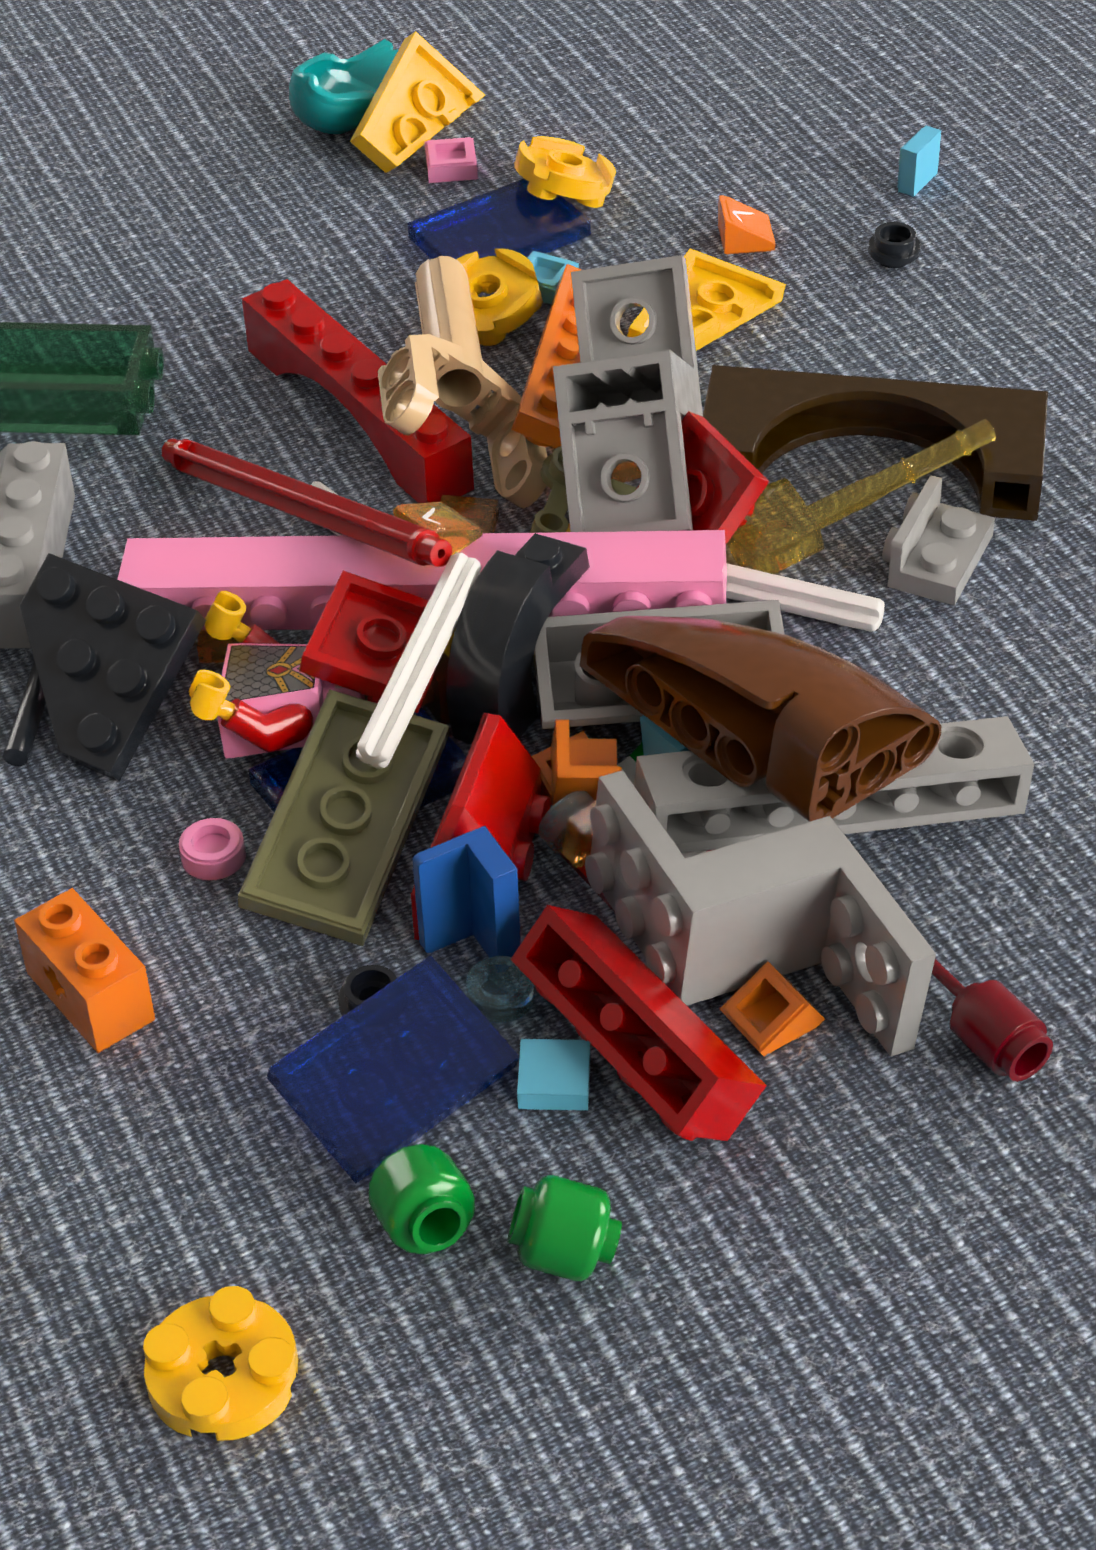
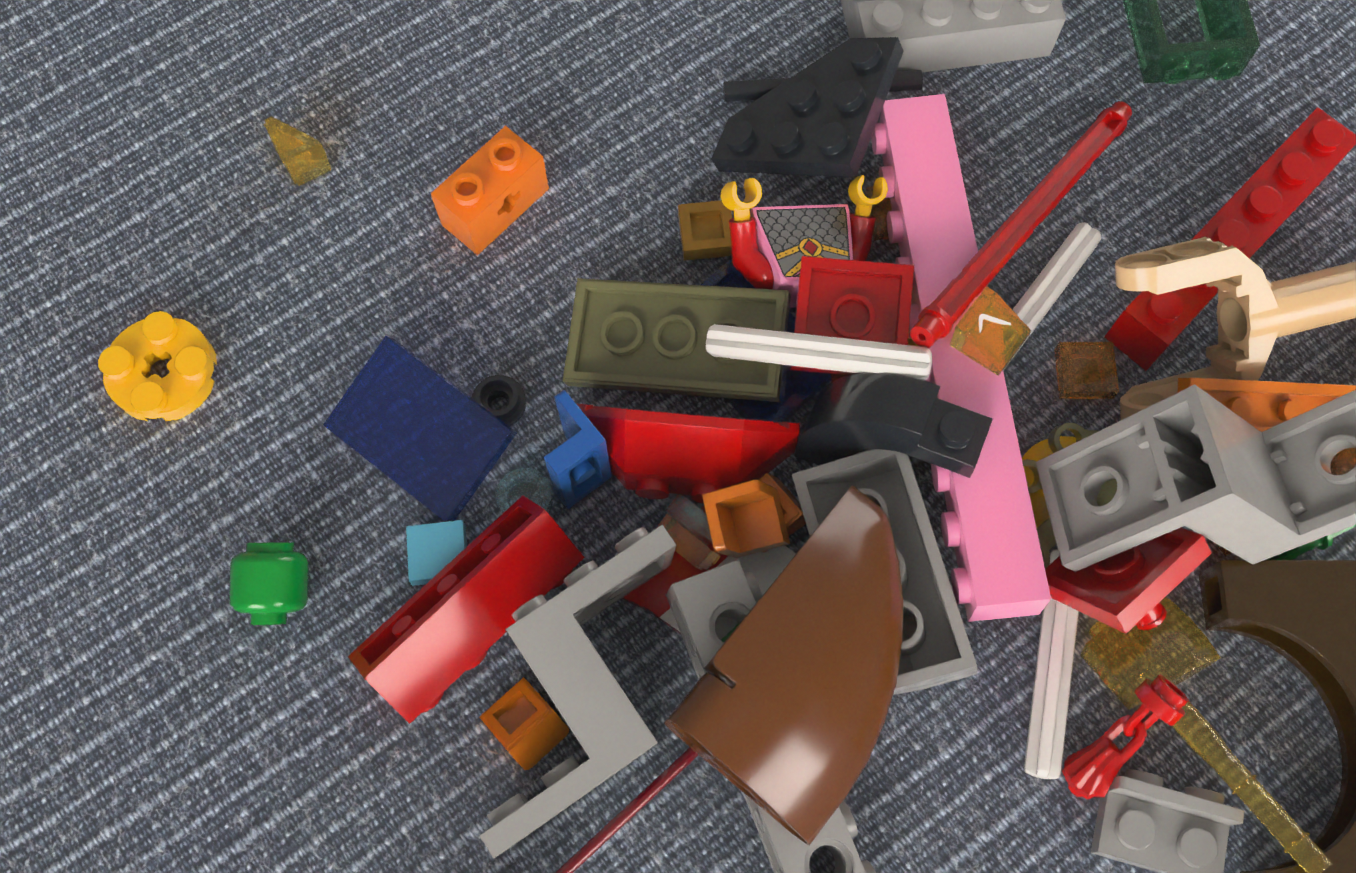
camera: 80 degrees right, 25 degrees up
(205, 785) = (704, 230): none -> pearl gold plate
(212, 849) = (647, 252): bright pink tile -> none
(421, 1199) = (291, 472): green head -> none
(874, 569) = (1095, 766): none -> red piece

